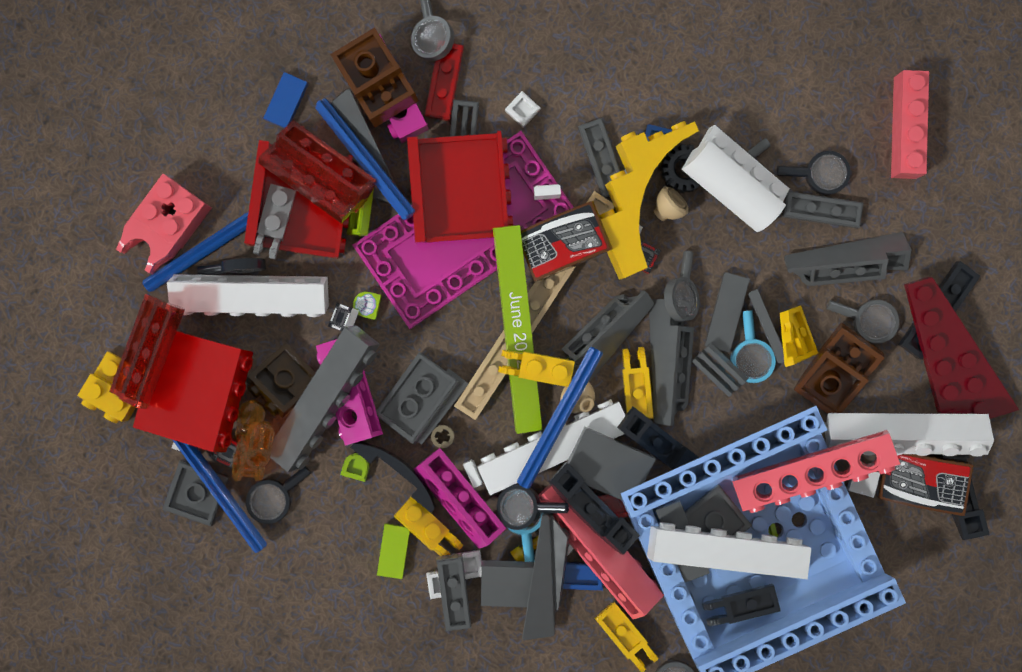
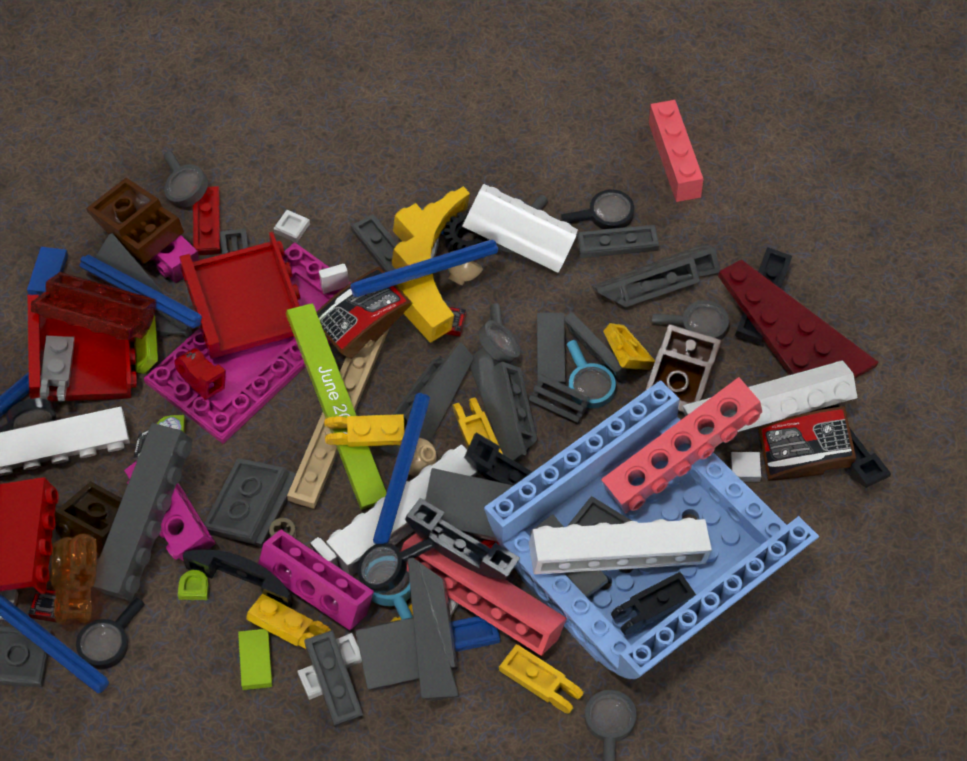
camera: 15 degrees left, 30 degrees down
(402, 260) = (200, 373): none -> red leg
(632, 215) = (423, 268): none -> blue axle

